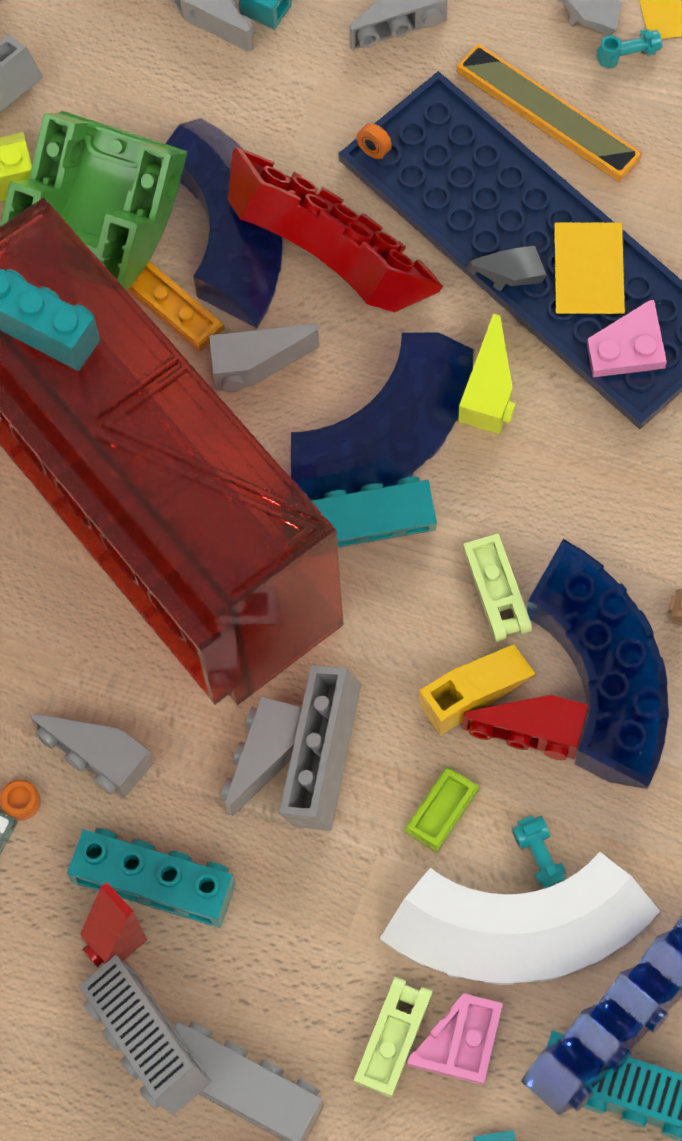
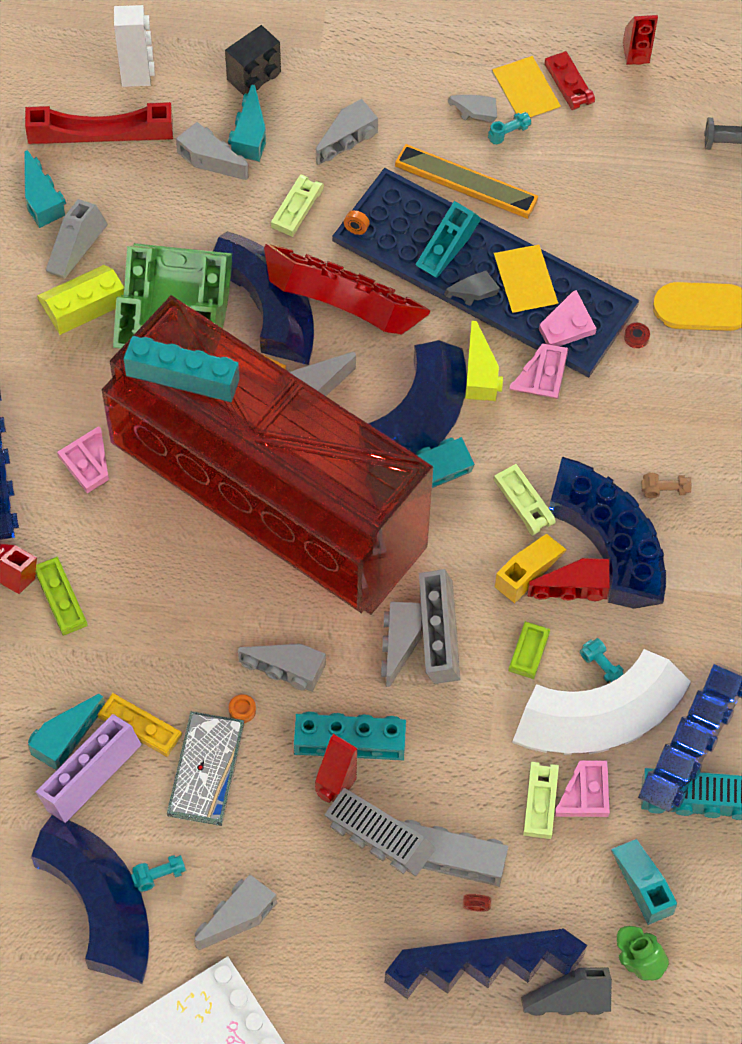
camera: 20 degrees left, 5 degrees down
(304, 100) = (296, 205): none -> yellowish green plate
(494, 189) = (448, 239): none -> teal slope
(575, 409) = (543, 372): none -> bright pink wing

